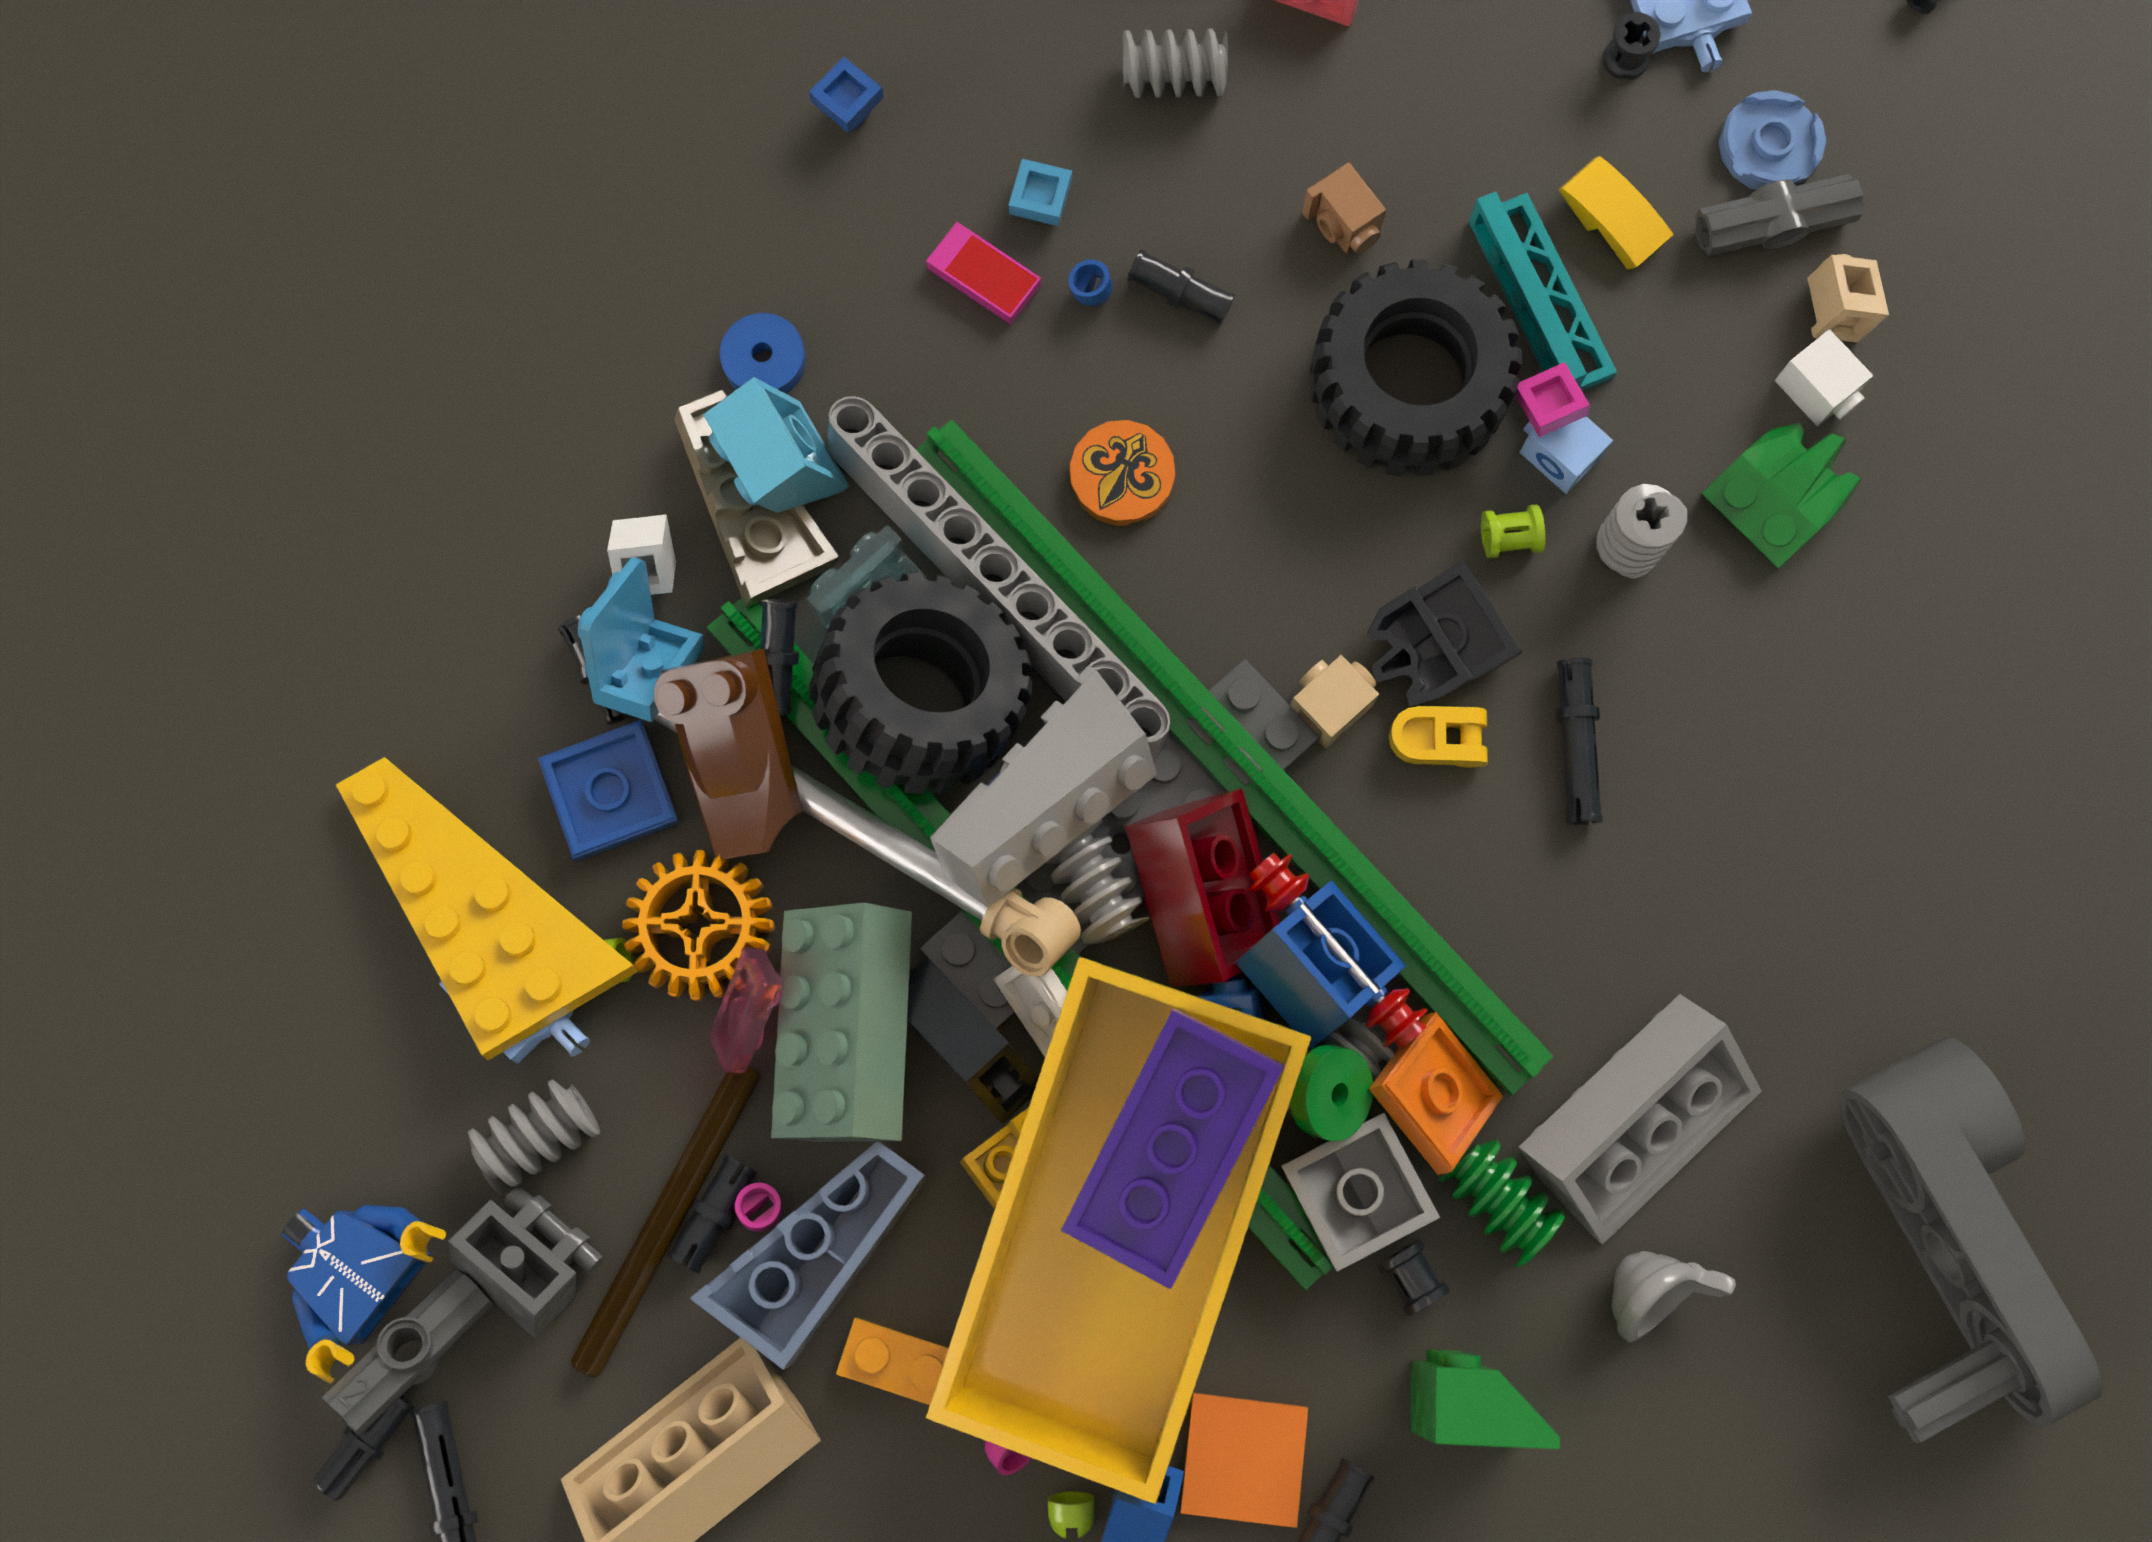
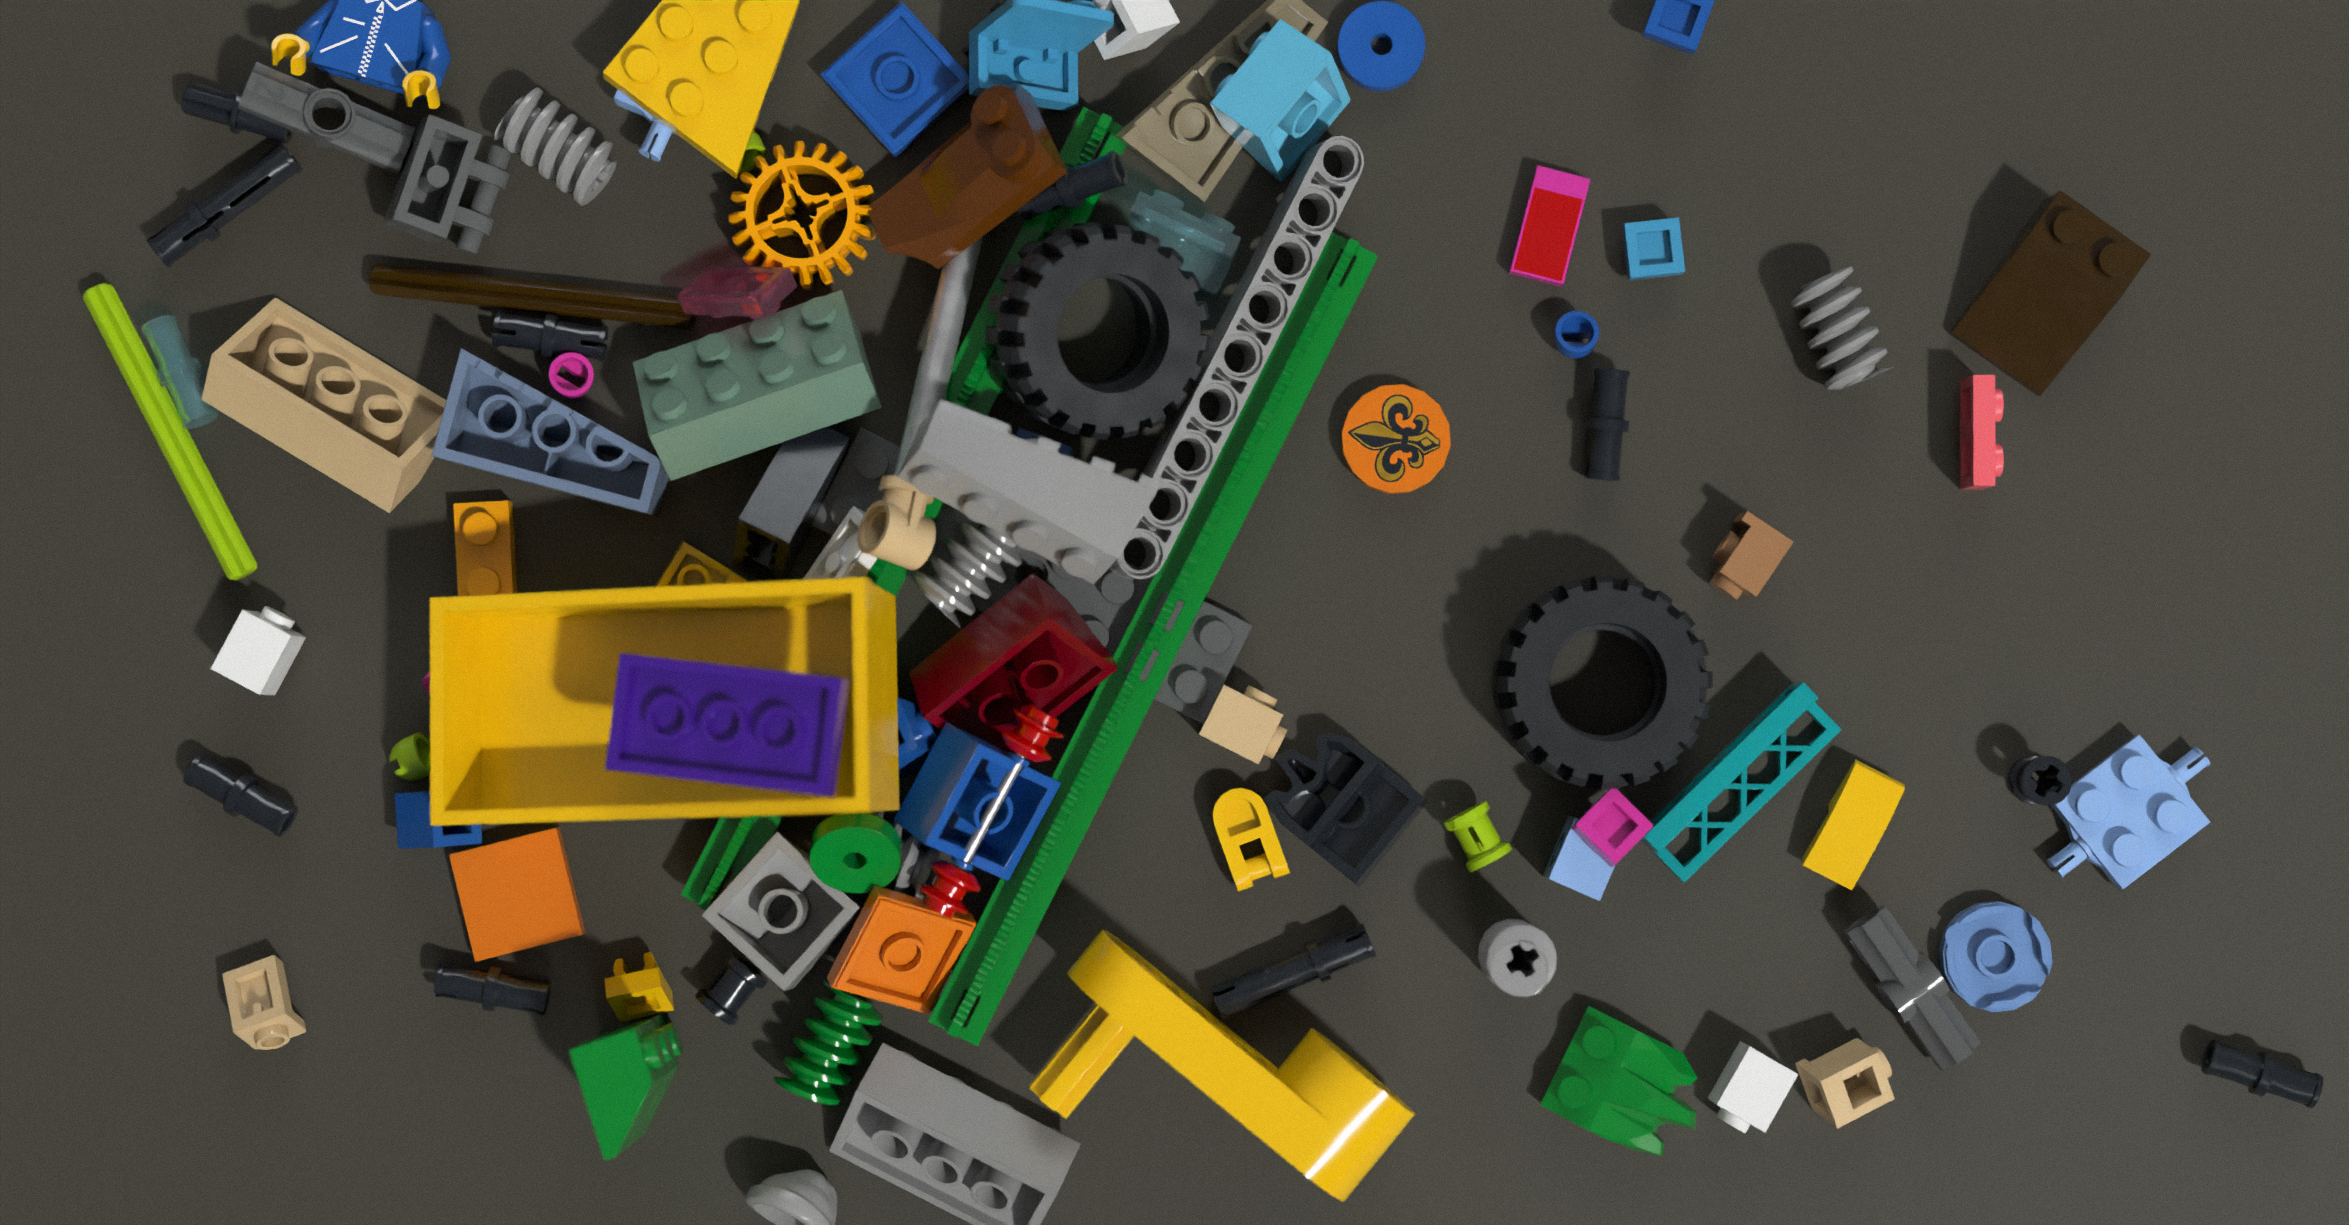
camera: 70 degrees right, 10 degrees up
(1386, 1370) = (638, 992): none -> yellow tile
(1719, 761) = (1312, 1110): none -> yellow beam

